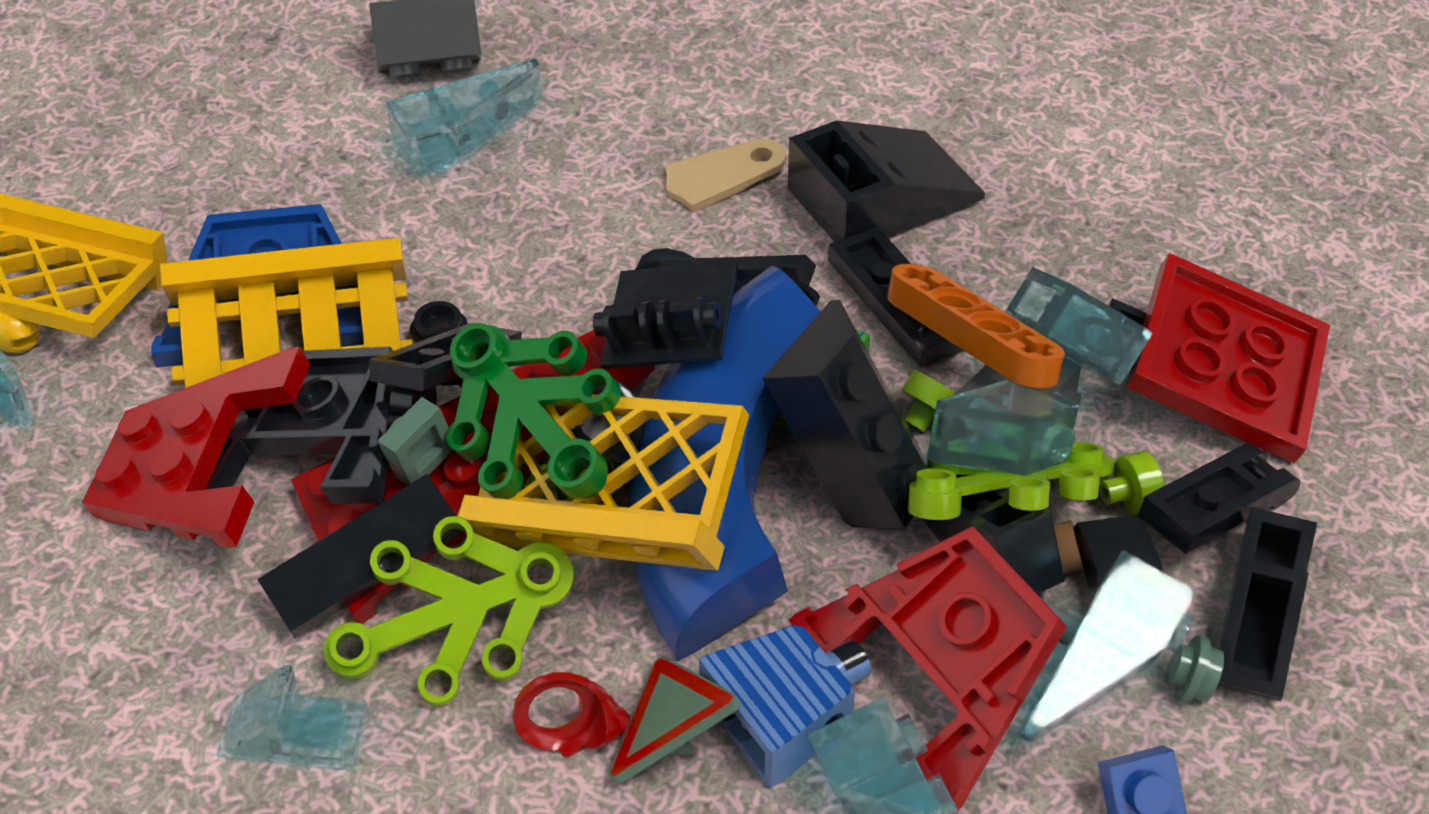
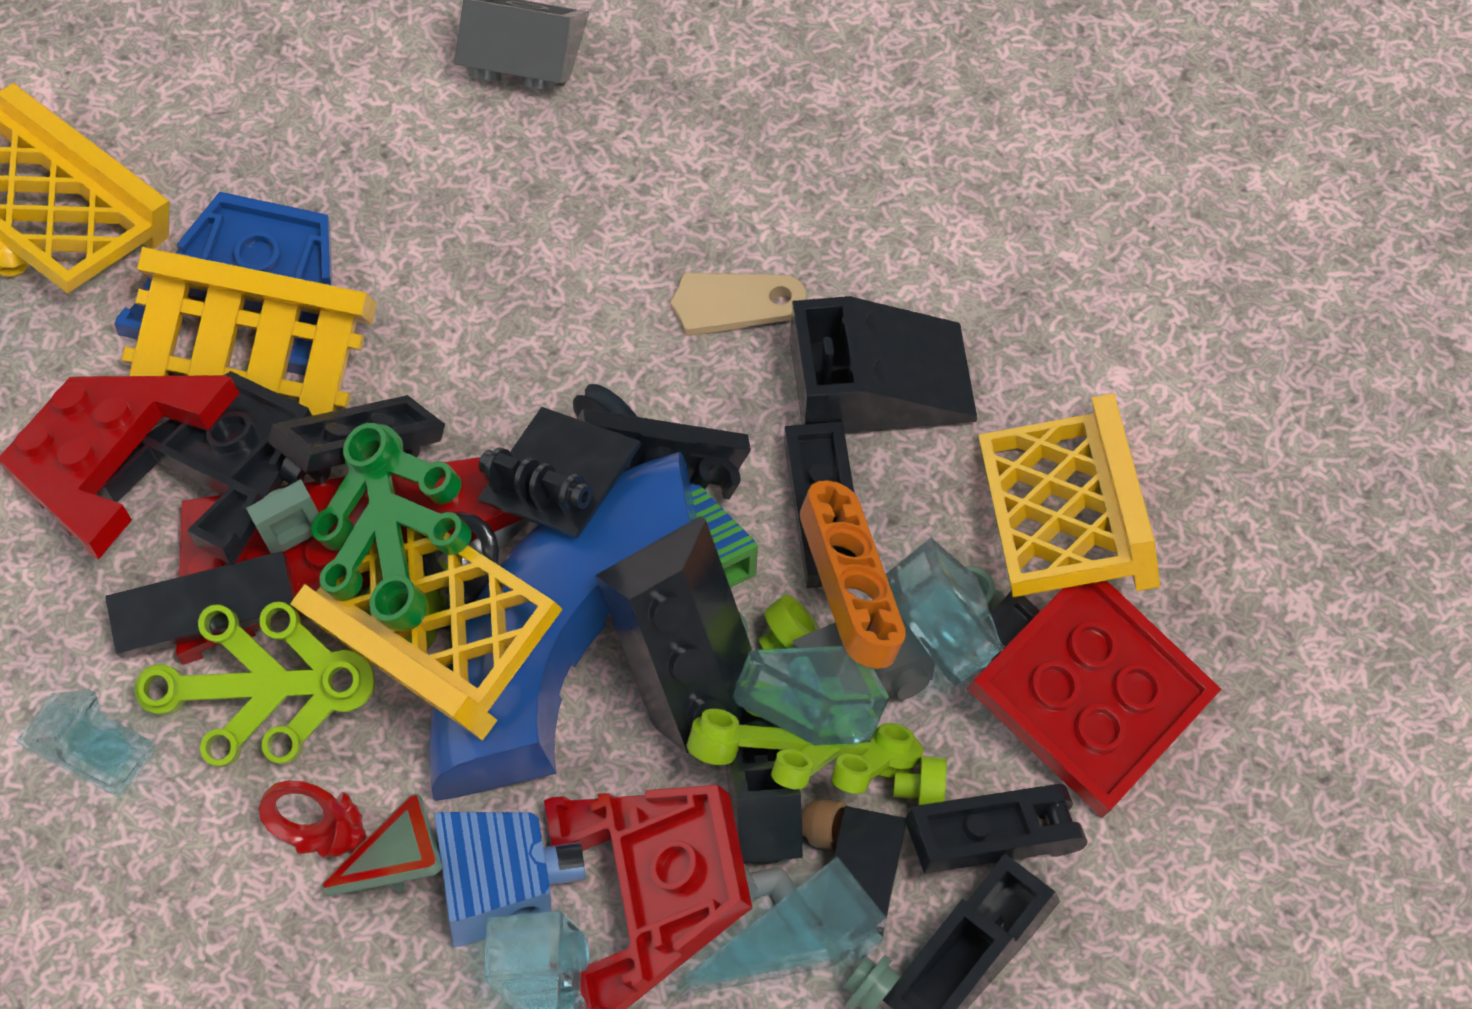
camera: 20 degrees right, 10 degrees up
(435, 319) = (380, 373): black plate -> none
(461, 117) = (506, 153): clear light blue slope -> none
(1144, 192) = (1119, 502): none -> yellow fence

